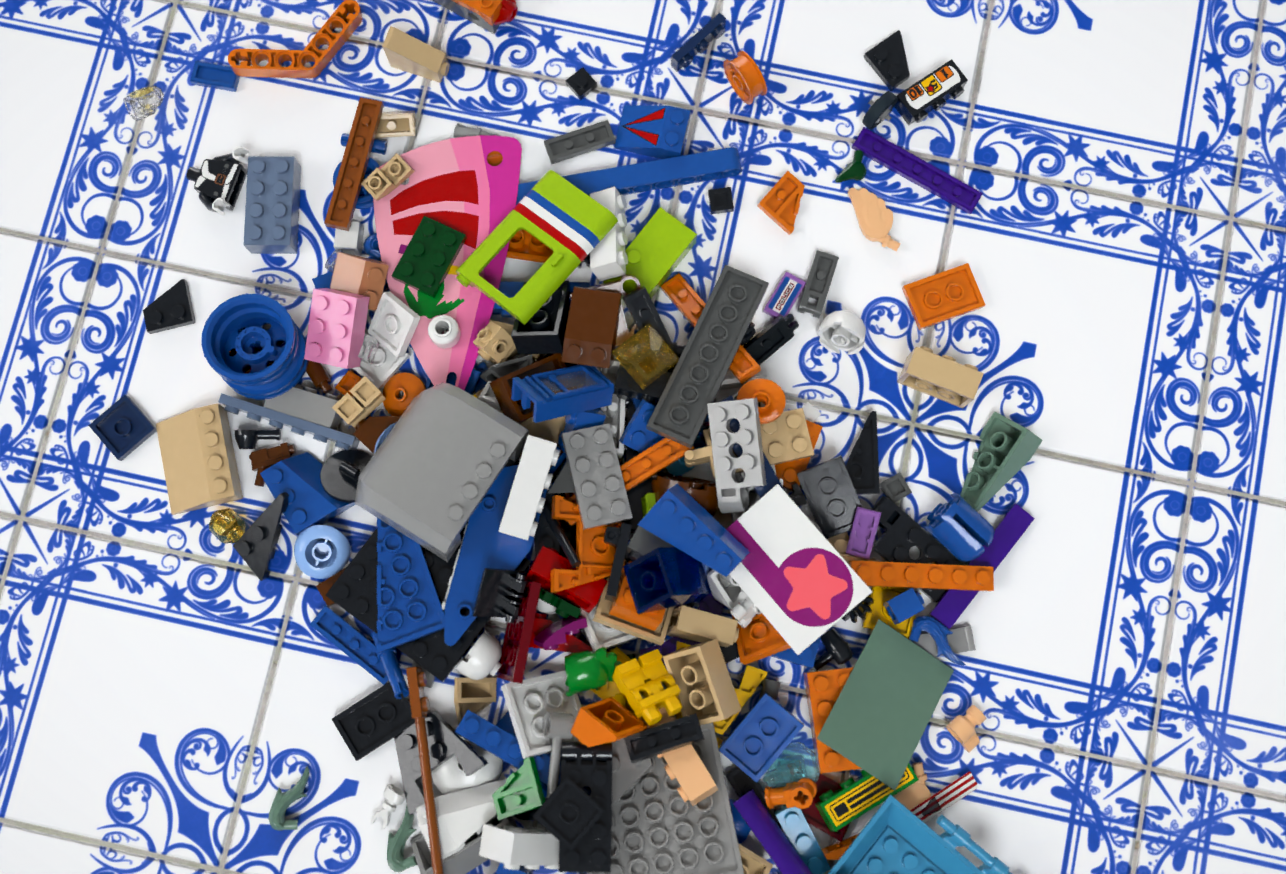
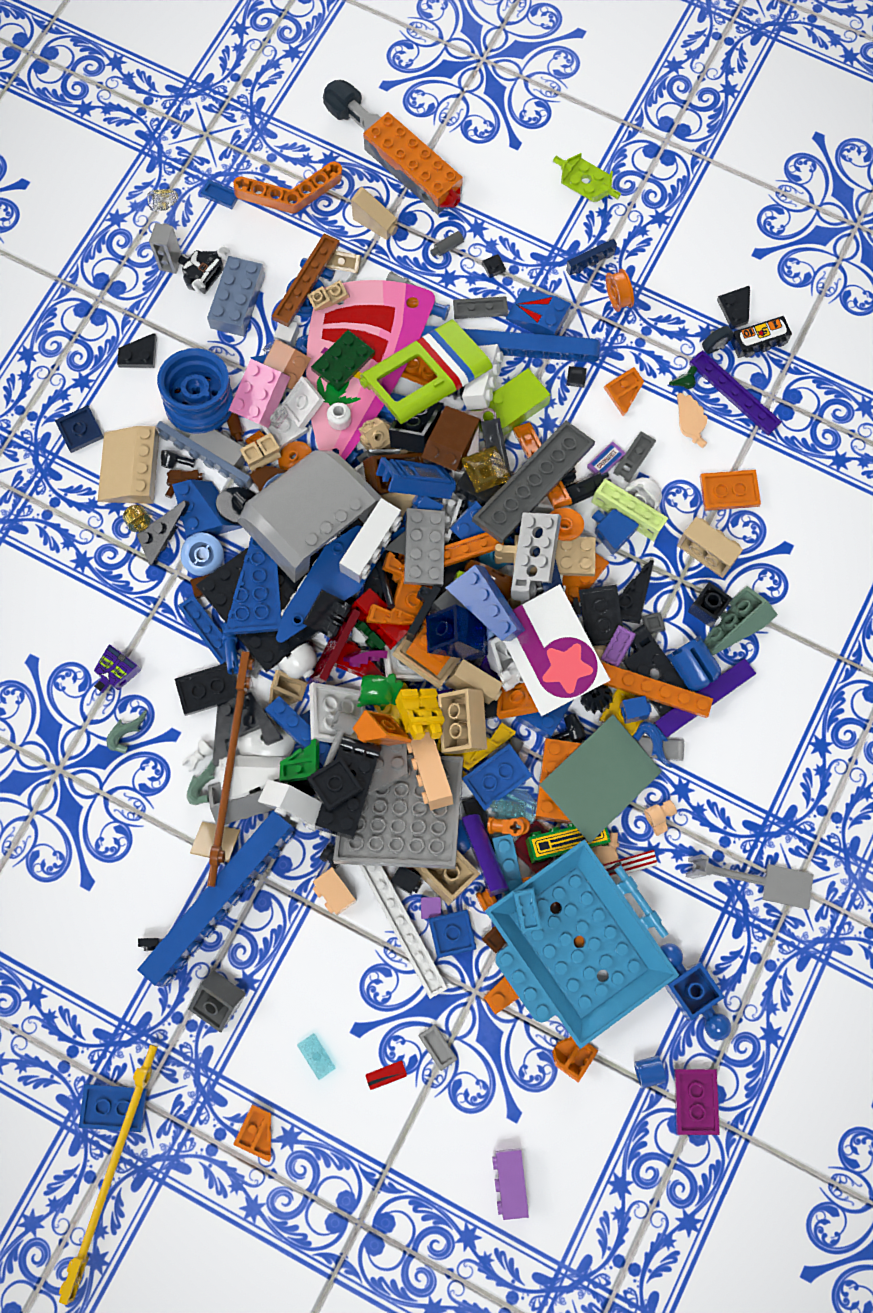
camera: 15 degrees right, 5 degrees down
(165, 167) = (165, 247): none -> light grey brick
(253, 727) = (114, 670): none -> torso
(516, 70) = (447, 244): none -> dark grey cylinder
(531, 158) = (440, 310): none -> blue bush
(664, 738) = (422, 752): black plate -> none
(817, 383) = (614, 529): none -> blue torso
(830, 354) = (631, 507): none -> yellowish green fence
(958, 449) = (710, 604): none -> black head
(1130, 771) = (780, 883): none -> light grey piece

